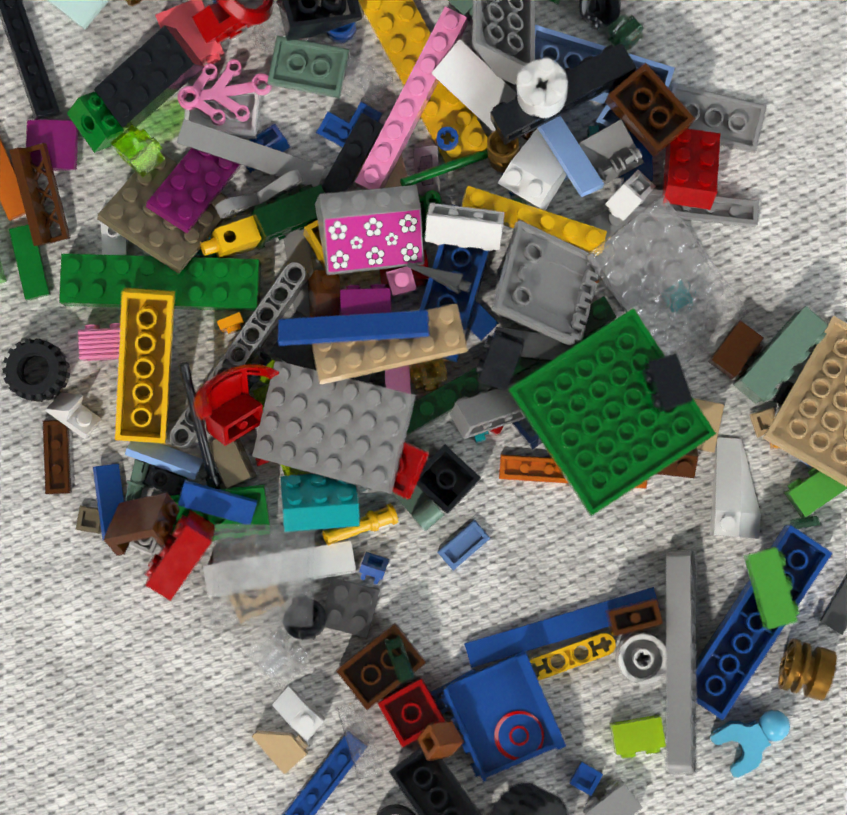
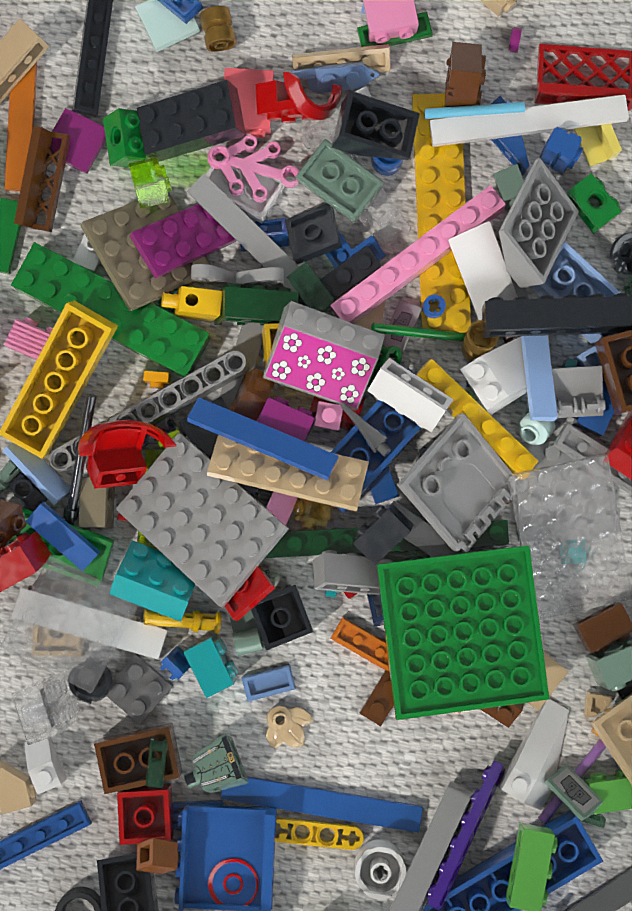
camera: 25 degrees right, 0 degrees up
(307, 125) = (313, 233): none -> black plate
(330, 175) = (311, 288): none -> clear green plate
(359, 740) = (86, 816): clear tile -> none
(405, 552) = (211, 665): none -> teal brick
(454, 640) = (217, 767): none -> sand green torso
(502, 575) = (289, 729): none -> tan plate
(543, 74) = (530, 304): white brick -> none
(570, 511) = (379, 701): none -> reddish brown plate
(591, 205) = (535, 431): none -> light aqua head
(630, 195) = (576, 440): white slope -> none
(633, 617) = (391, 829): reddish brown brick -> none
(667, 382) = (527, 631): black brick -> none
(702, 580) = (460, 844): none -> dark purple plate
(774, 499) = (581, 770): none -> medium lavender bar
(779, 506) = (574, 792): none -> slope

